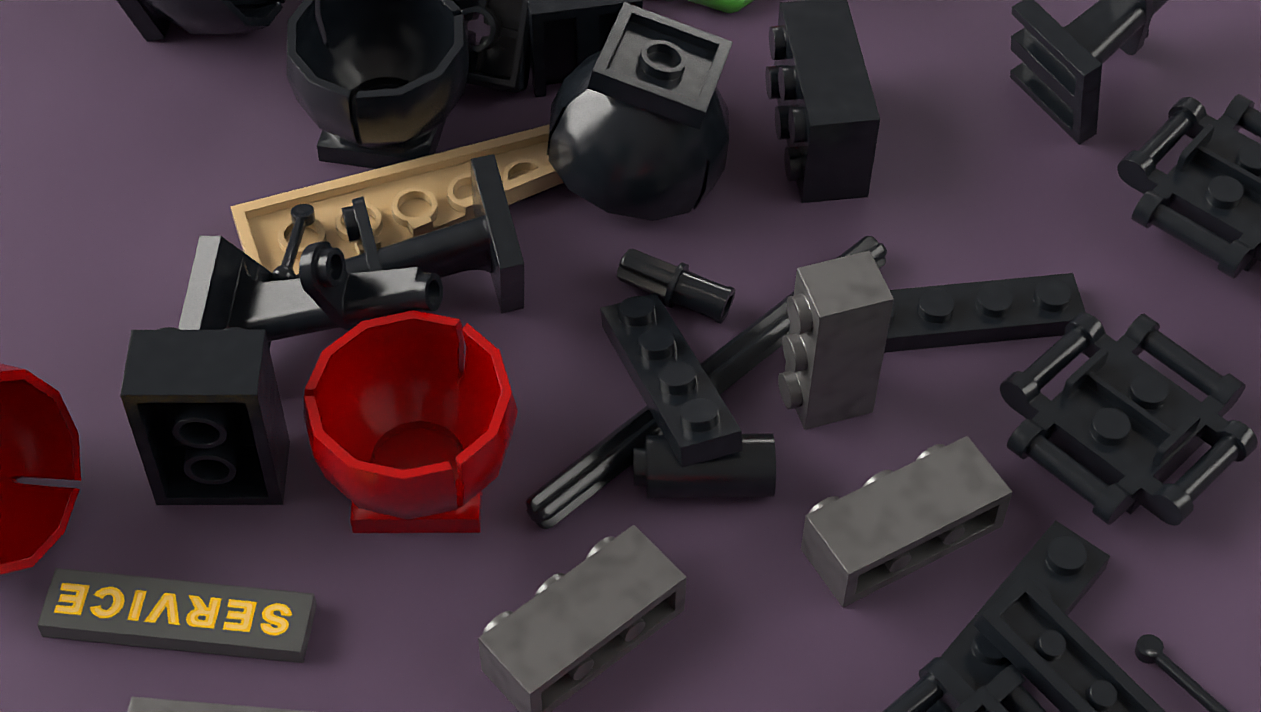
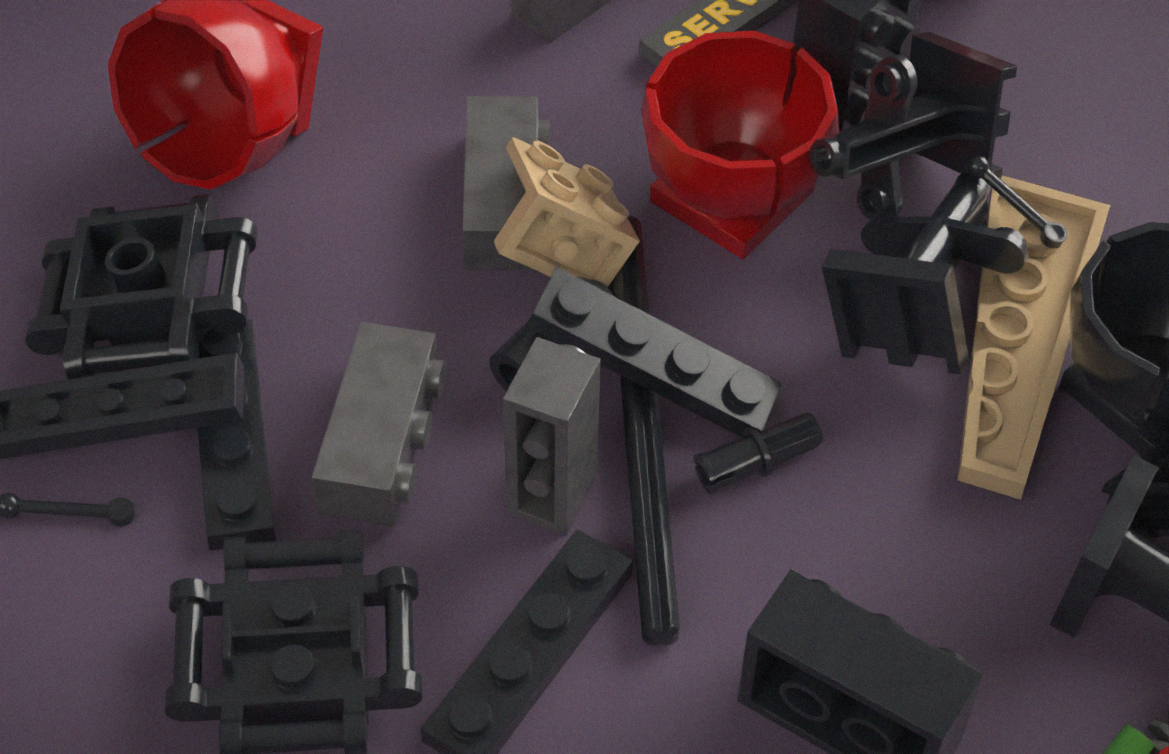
camera: 130 degrees right, 0 degrees up
(585, 512) = (565, 217): none -> tan bracket
(643, 118) = (945, 509): black plate -> none

